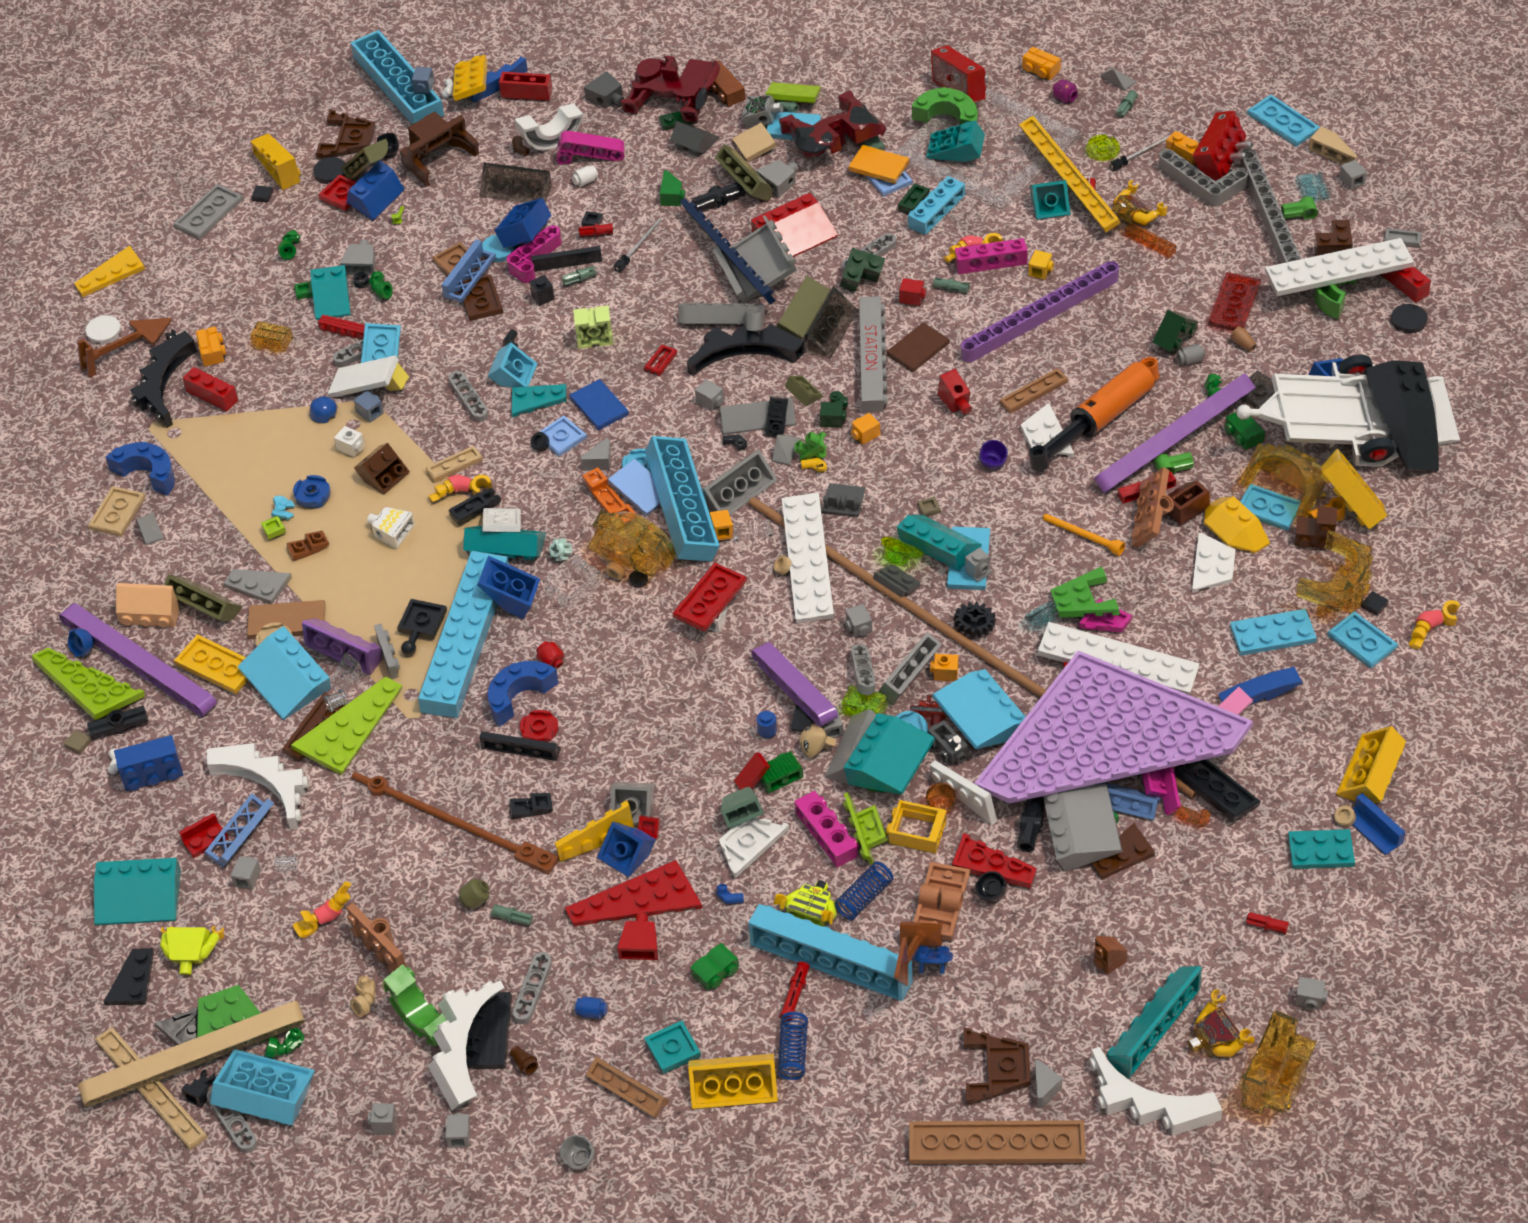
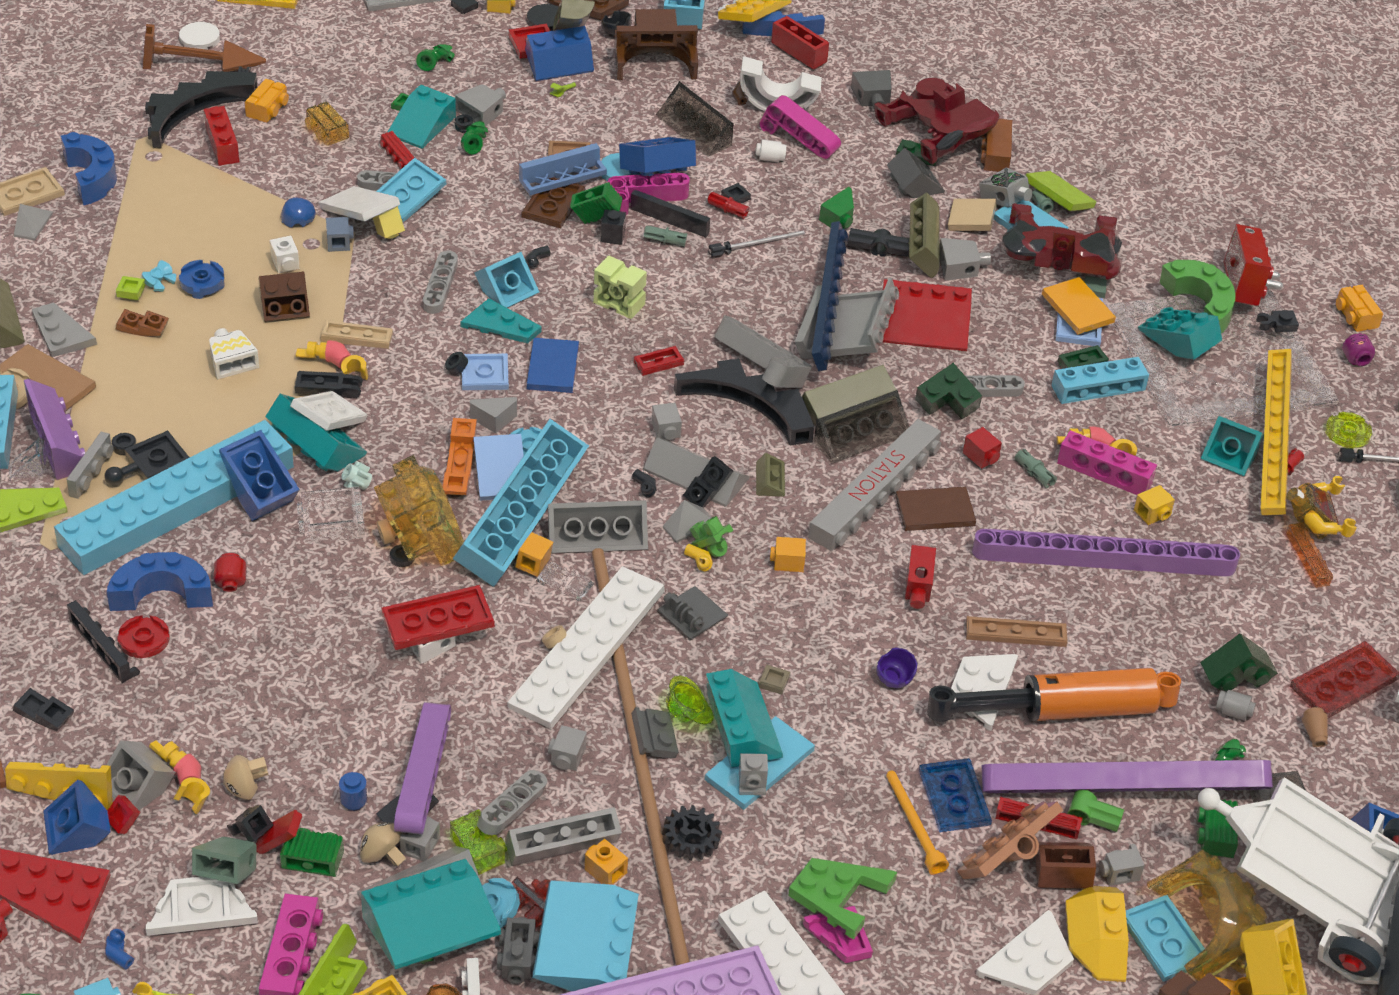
camera: 30 degrees right, 5 degrees down
(389, 623) = (122, 441): none -> black tile
(517, 280) = (592, 203): none -> green brick
(662, 781) = (187, 771): none -> yellow piece
(694, 759) = (240, 776): none -> tan piece
(731, 778) = (251, 823): none -> black piece
(833, 413) = (774, 519): dark green brick -> none
(1005, 100) = (1279, 320): none -> black plate
(1042, 614) = (770, 879): clear light blue piece -> none
(1090, 505) = (955, 795): none -> clear blue tile
(1216, 482) = (1122, 866): none -> light grey brick

